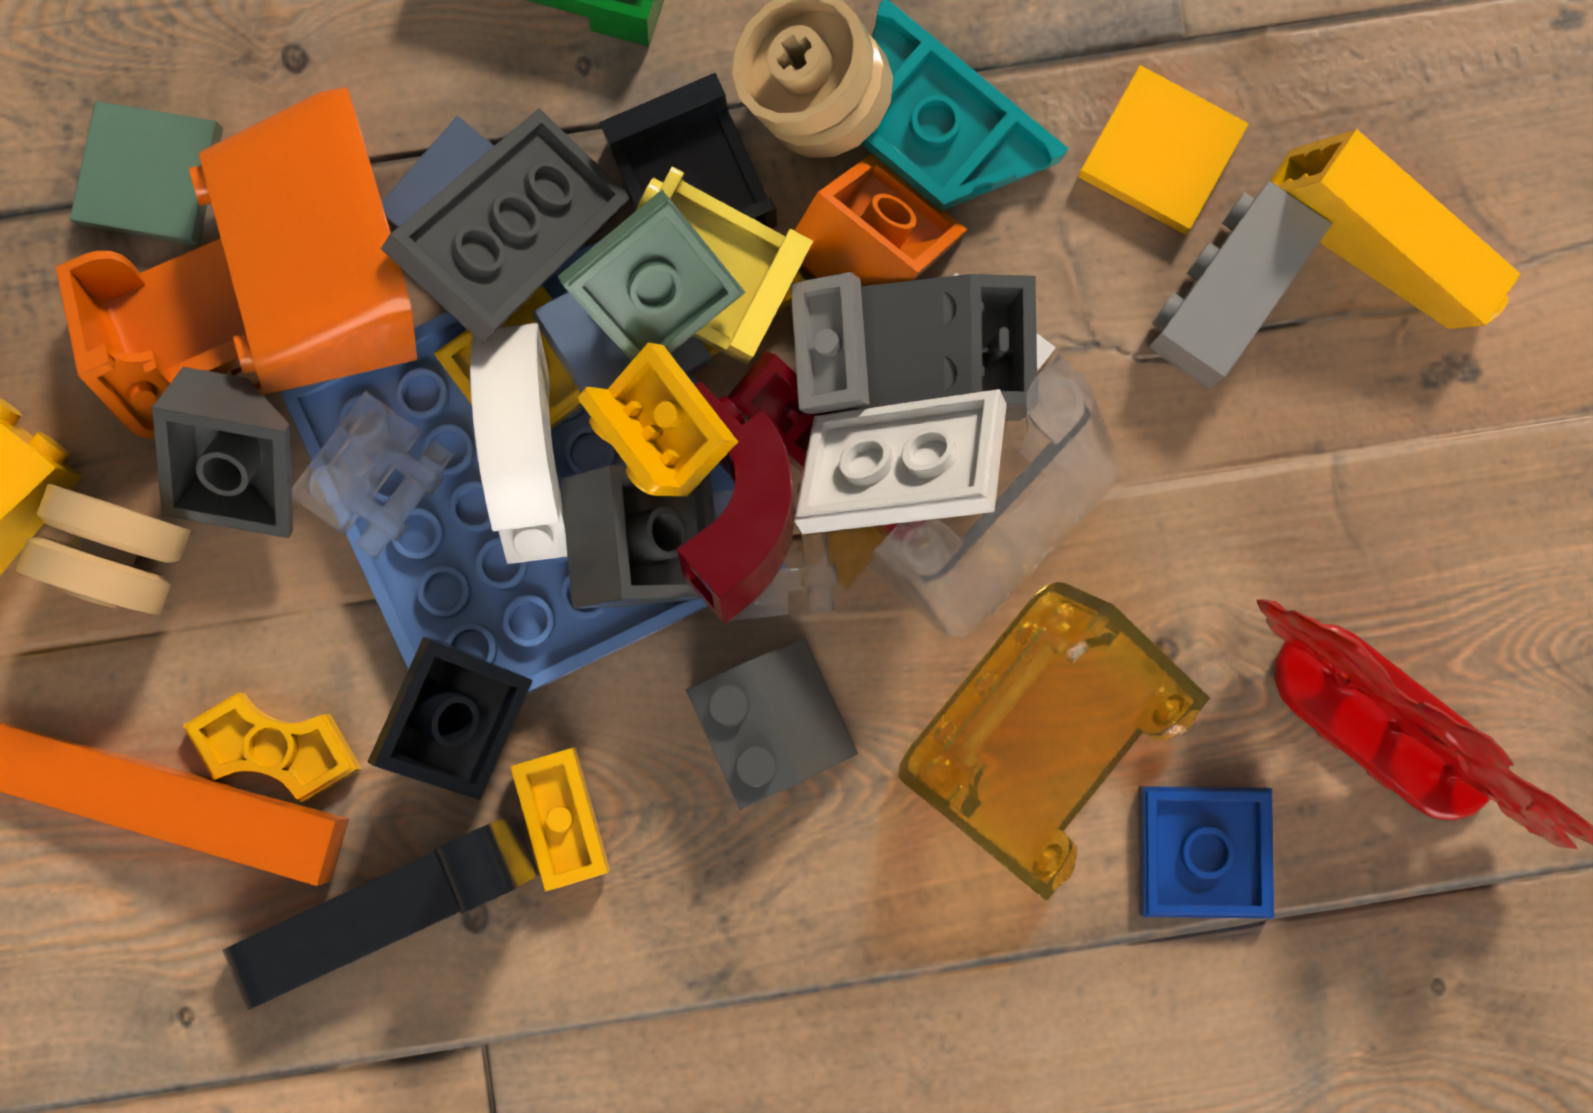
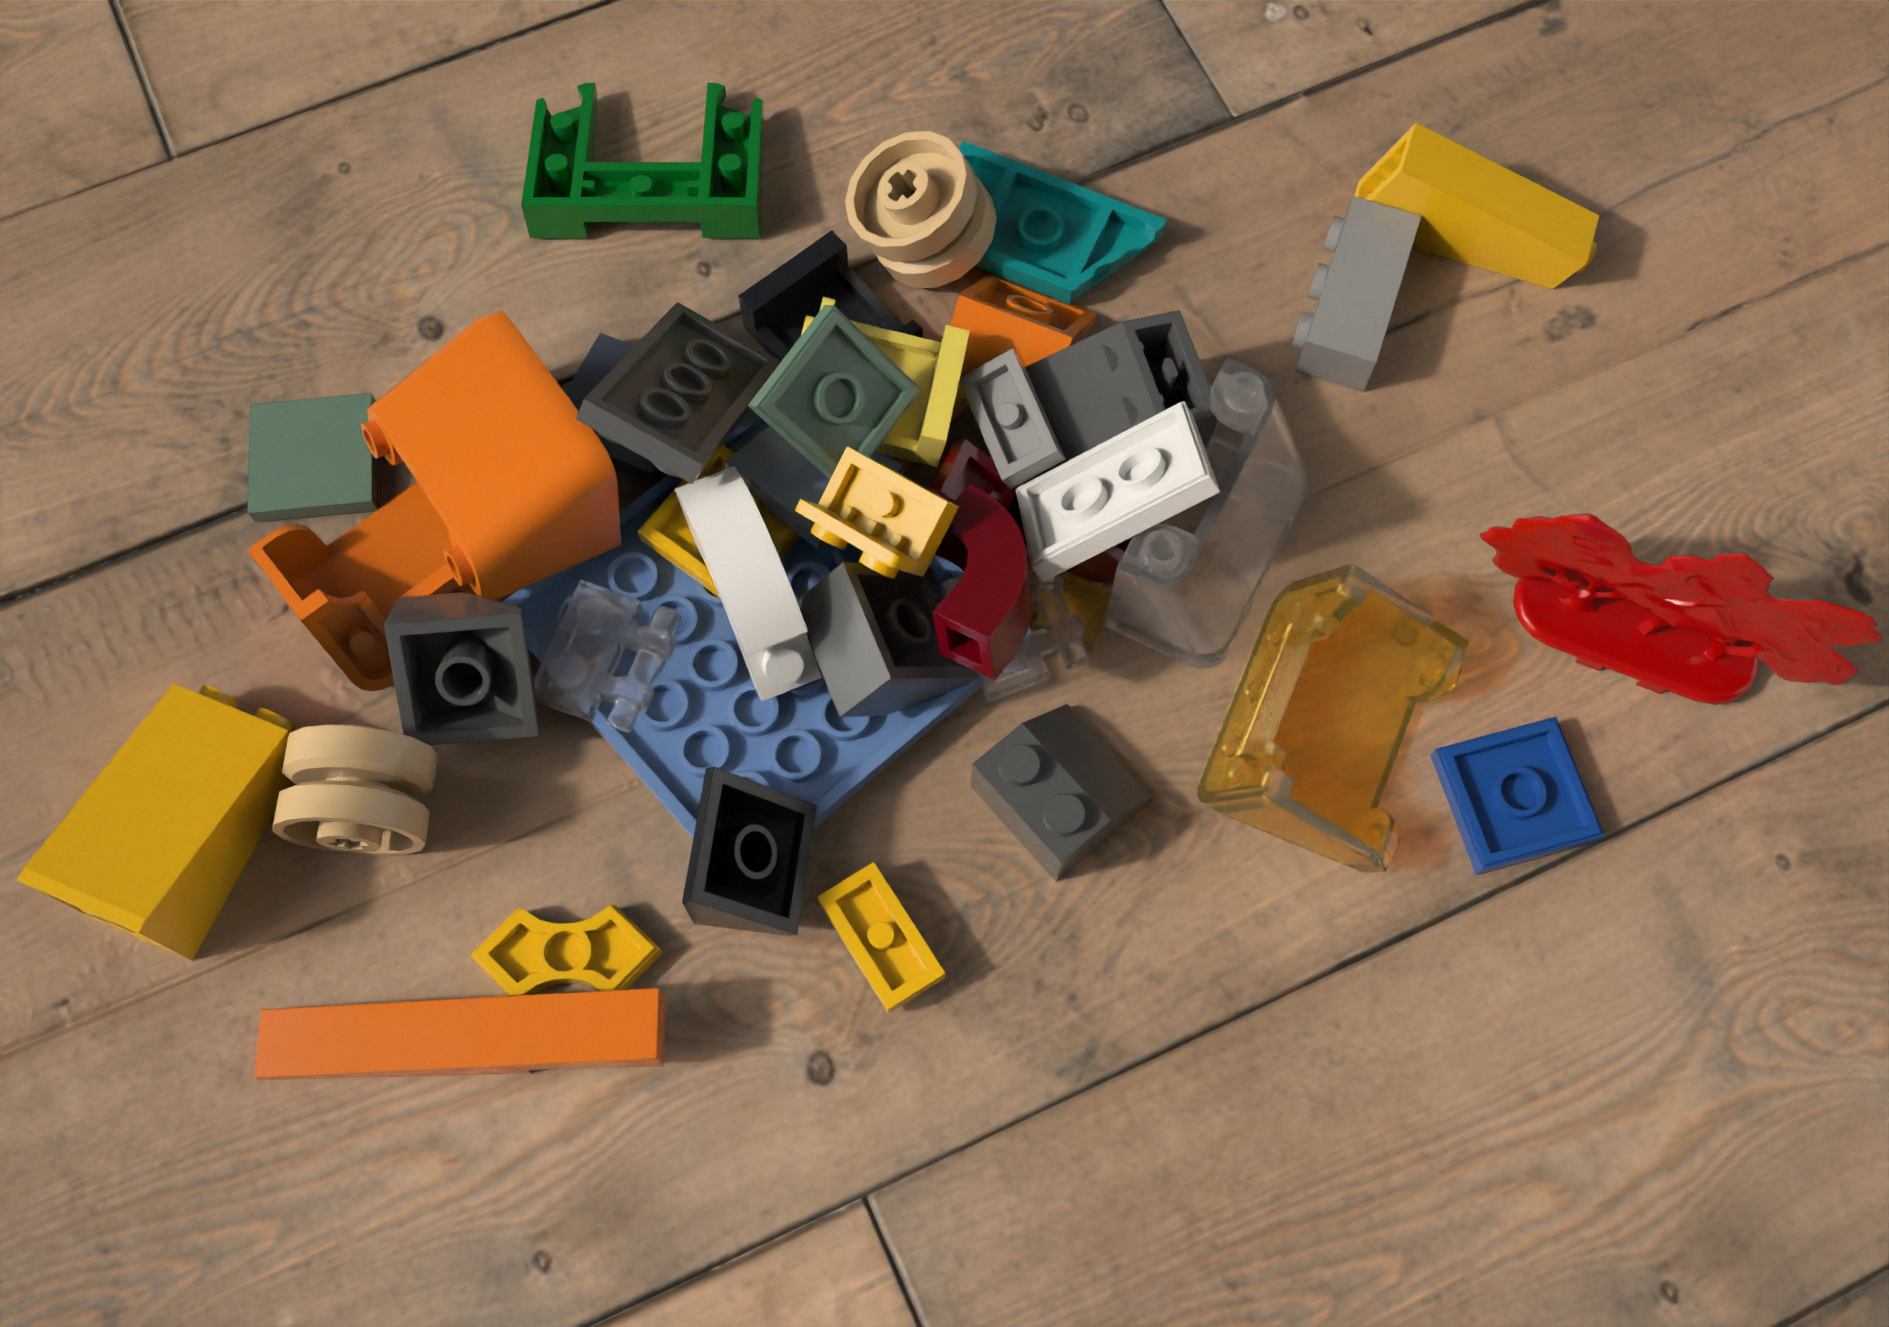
camera: 20 degrees left, 15 degrees down
(382, 911) = (664, 1132): black beam -> none
(1163, 150) = (1249, 206): yellow tile -> none

